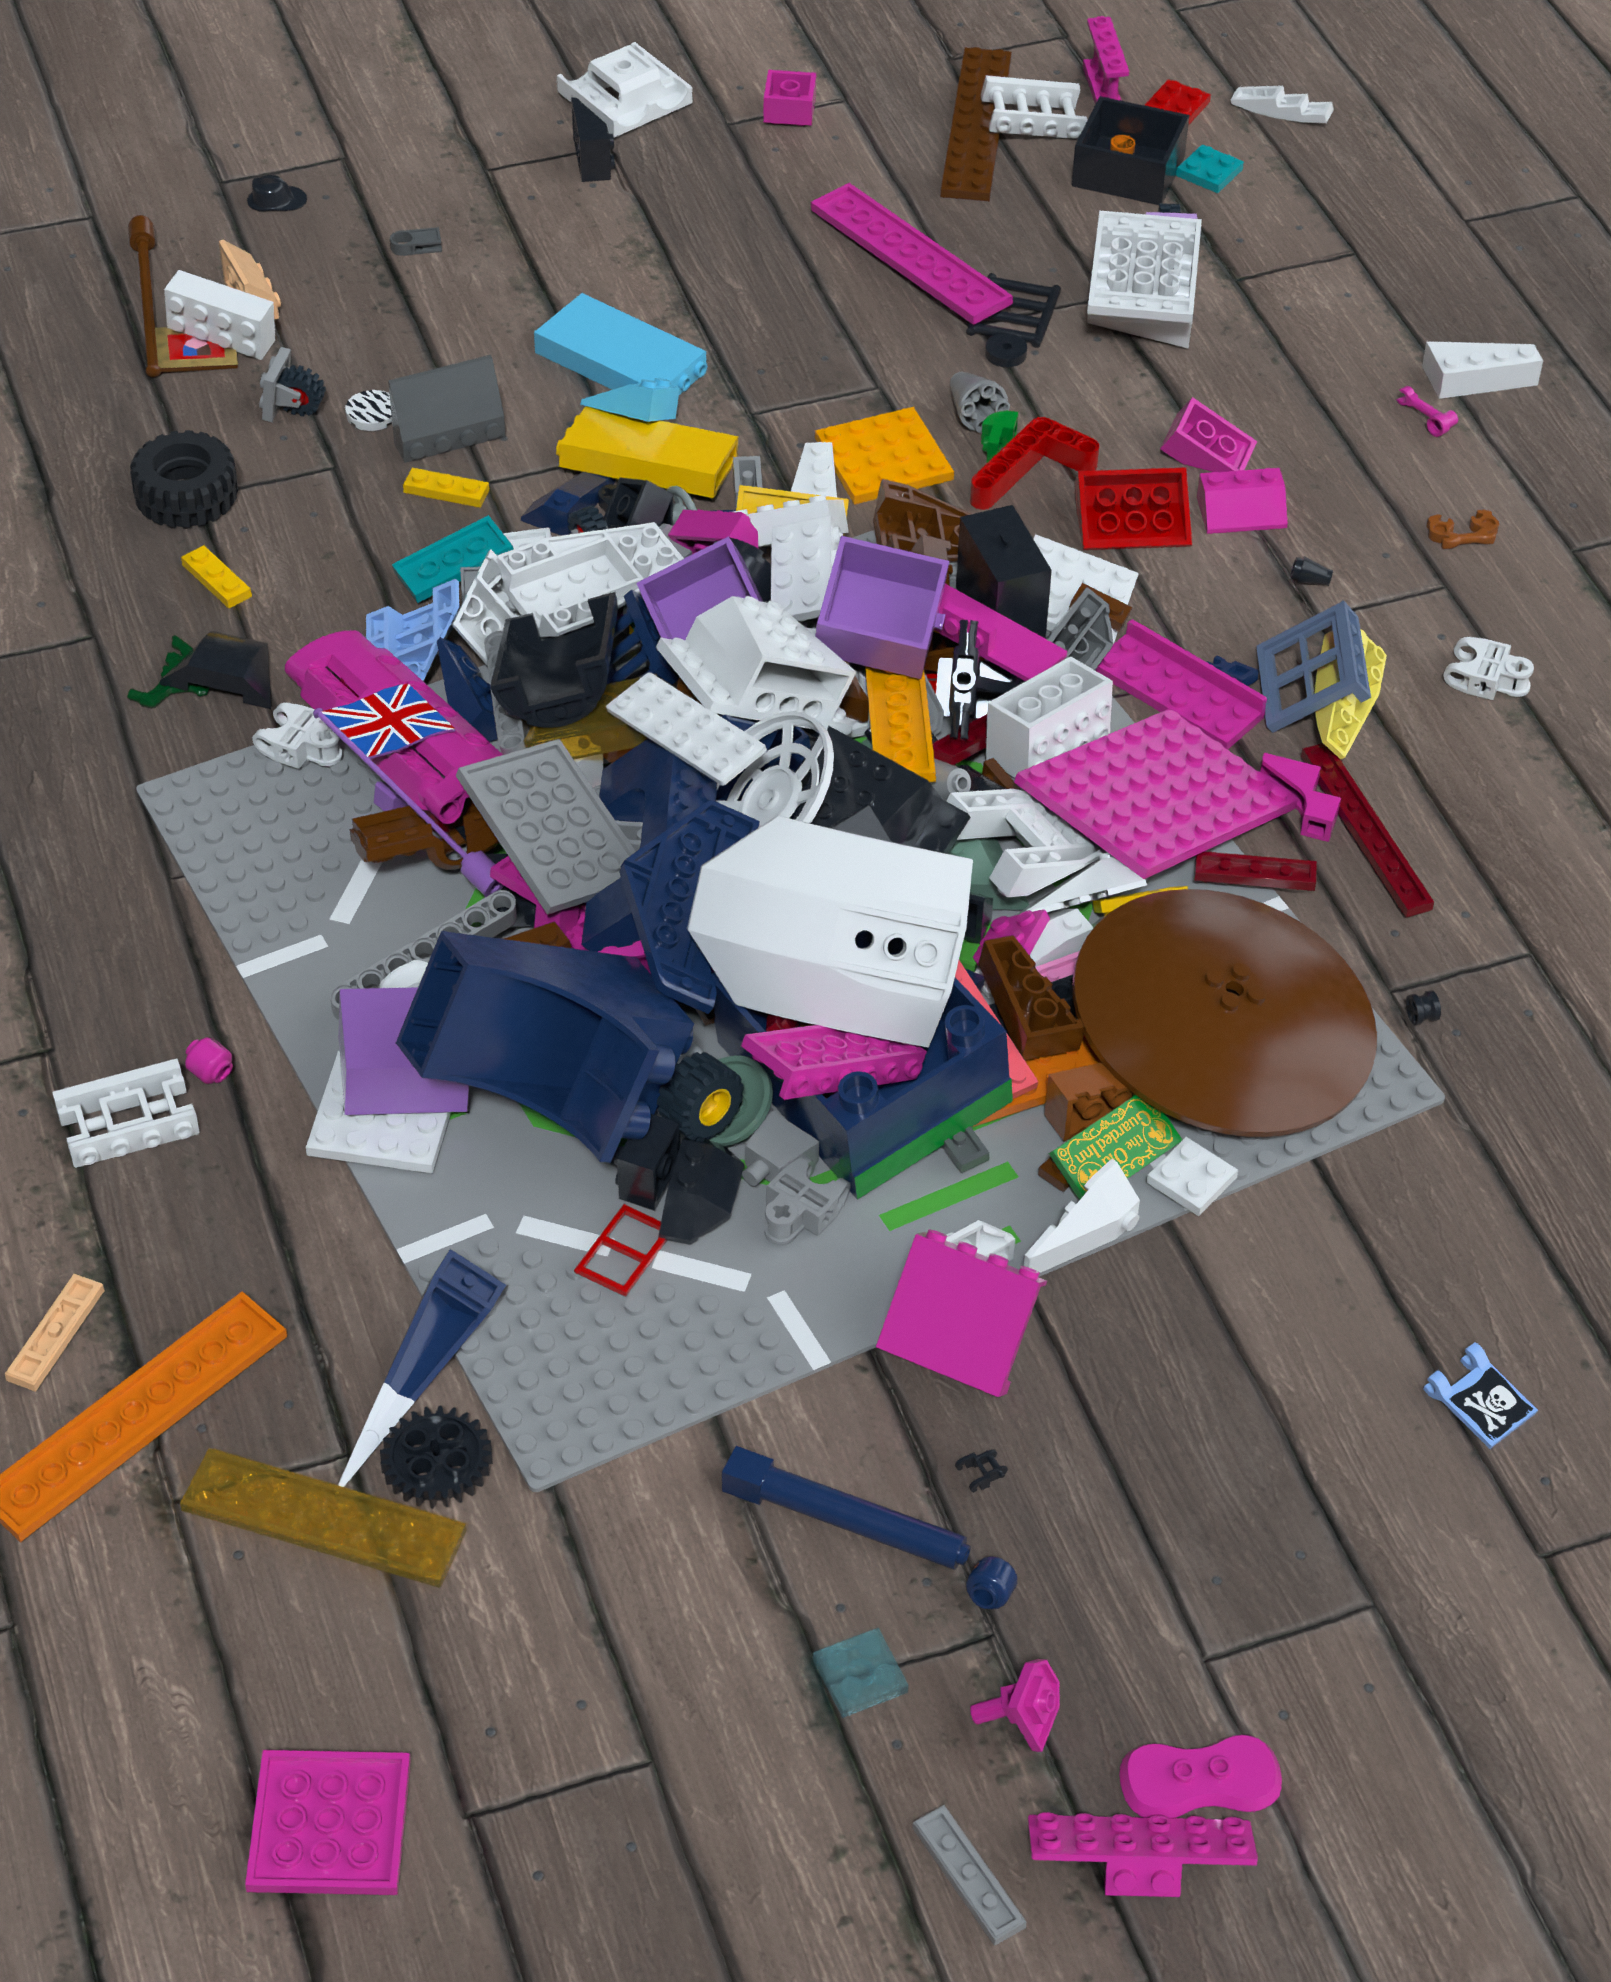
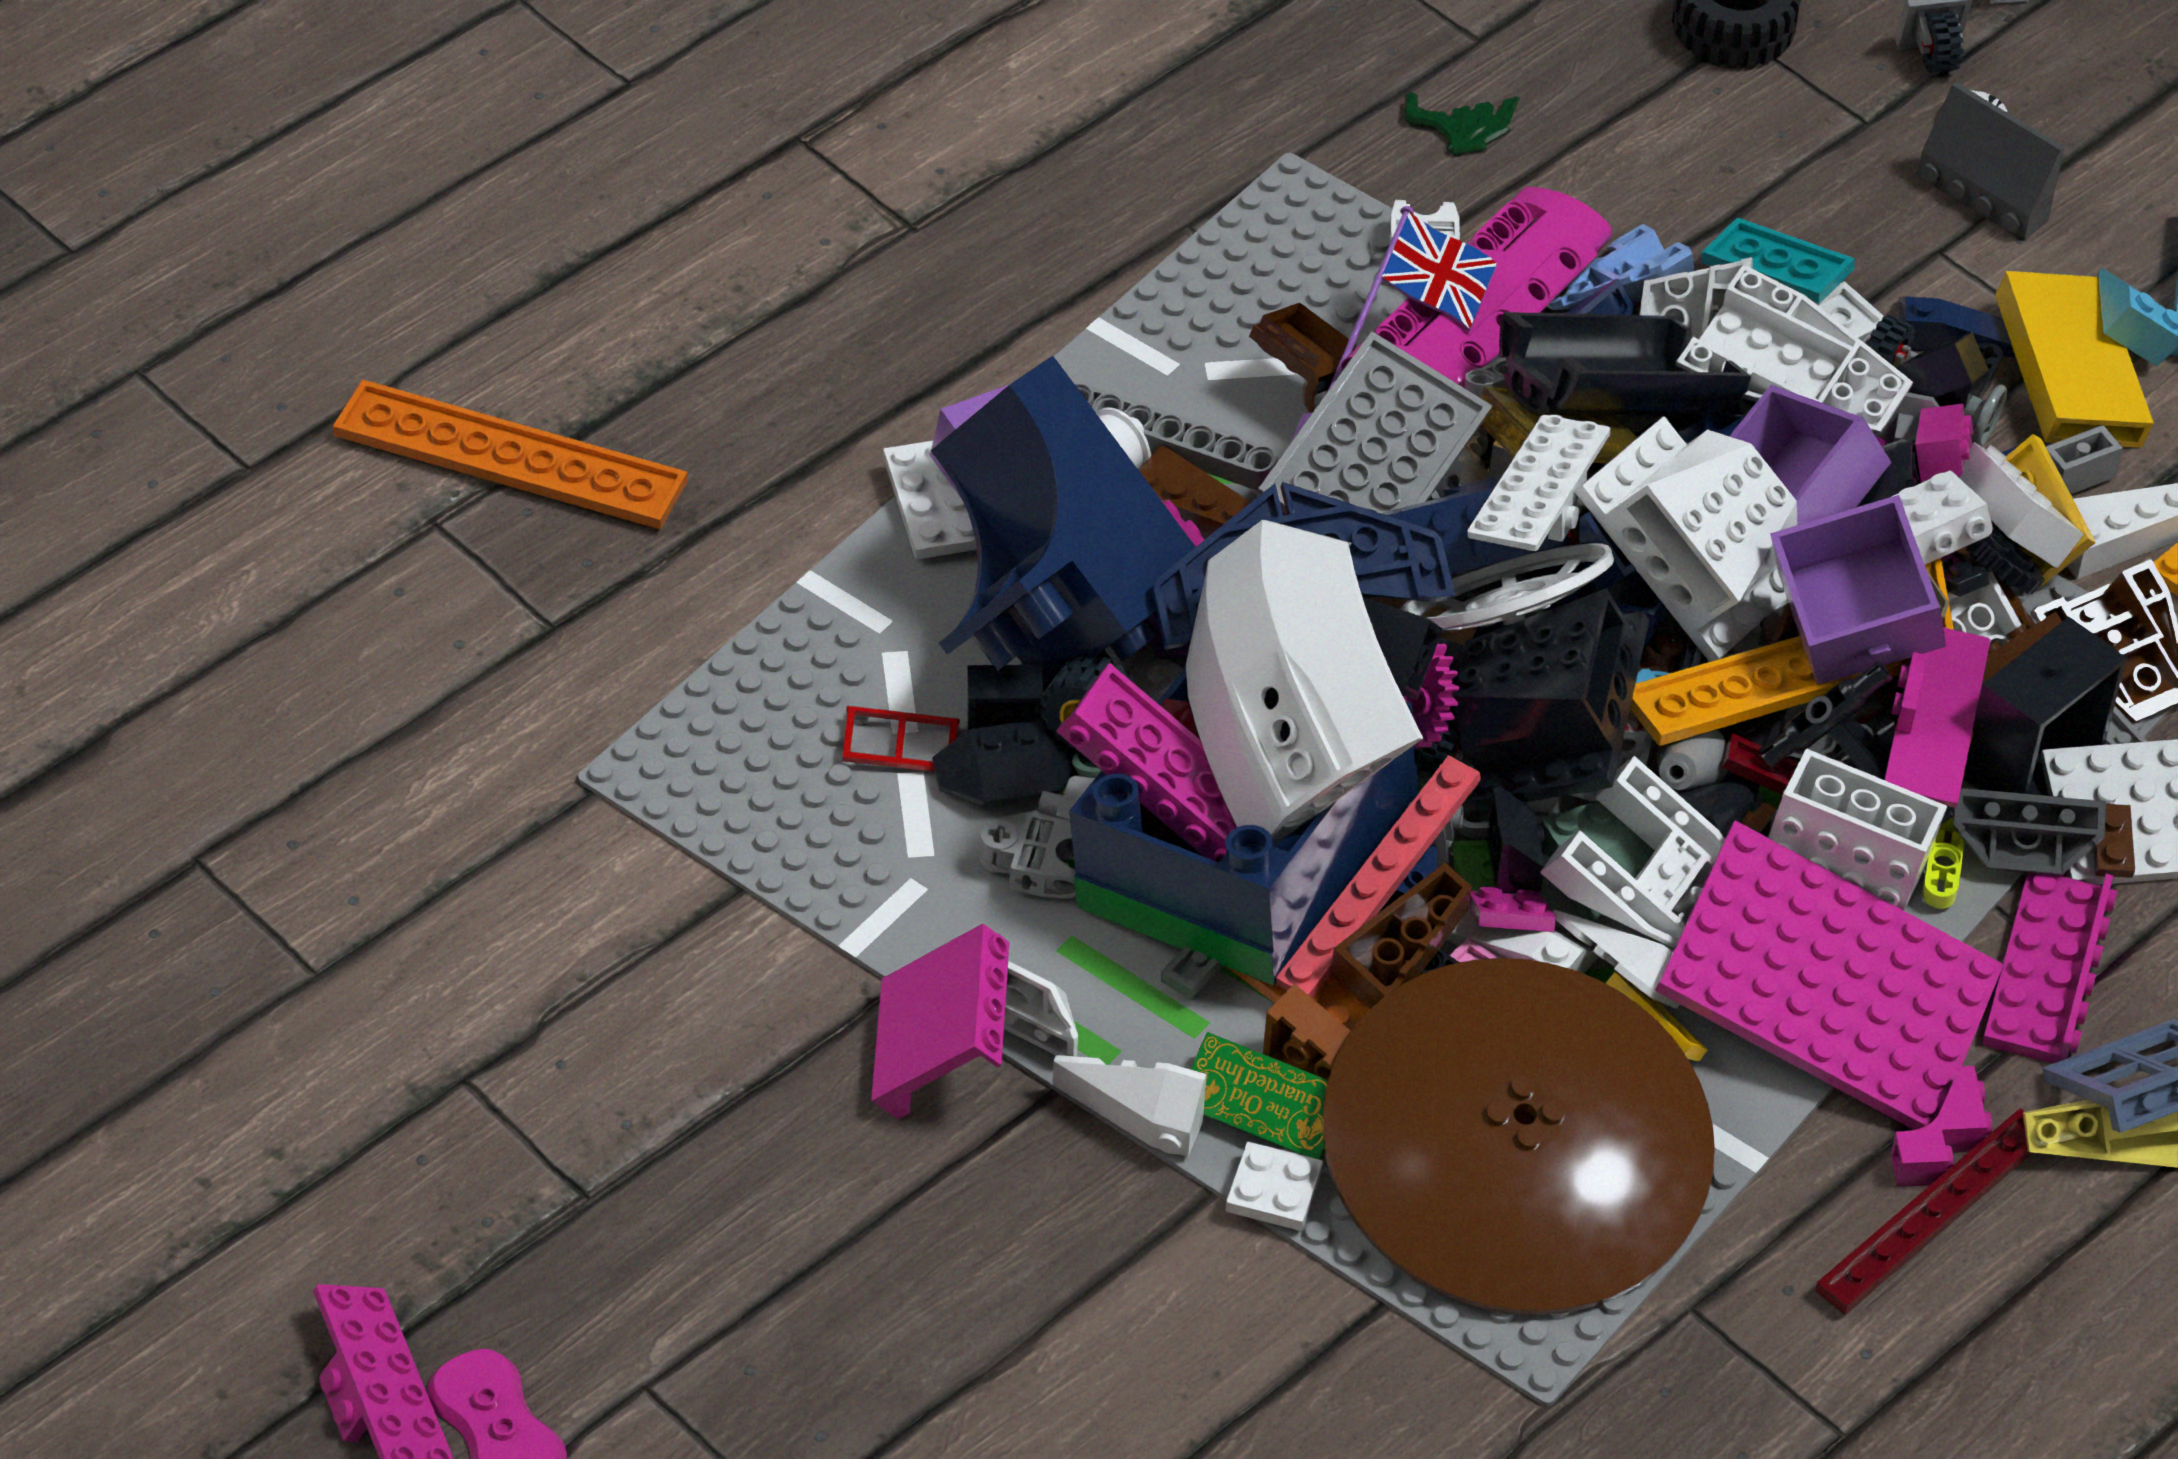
camera: 65 degrees right, 0 degrees up
(54, 1332) = (573, 363): light nougat plate -> none
(118, 1094) = (871, 289): white fence -> none
(208, 1060) = (955, 339): dark pink head -> none
(216, 576) = (1626, 95): yellow plate -> none
(227, 665) = (1496, 151): black wedge -> none
(324, 1517) = (462, 633): clear yellow plate -> none
(328, 1822) = (136, 758): dark pink plate -> none
(436, 1457) = (571, 686): black gear -> none
(446, 487) = (1899, 220): yellow plate -> none
(446, 1316) = (725, 626): dark blue plate -> none
(756, 1479) = (667, 1021): dark blue brick -> none
(860, 1672) = (486, 1101): clear light blue plate -> none
(969, 1875) = (294, 1261): light grey tile -> none
(978, 1461) = (776, 1131): black piece -> none
(991, 1583) = (637, 1169): dark blue head -> none
(1028, 1703) = (500, 1239): dark pink piece -> none
(1237, 670) = (2106, 1009): dark blue plate -> none
(1256, 870) = (1777, 1114): dark red plate -> none
(1423, 1007) = (1669, 1339): black wheel -> none

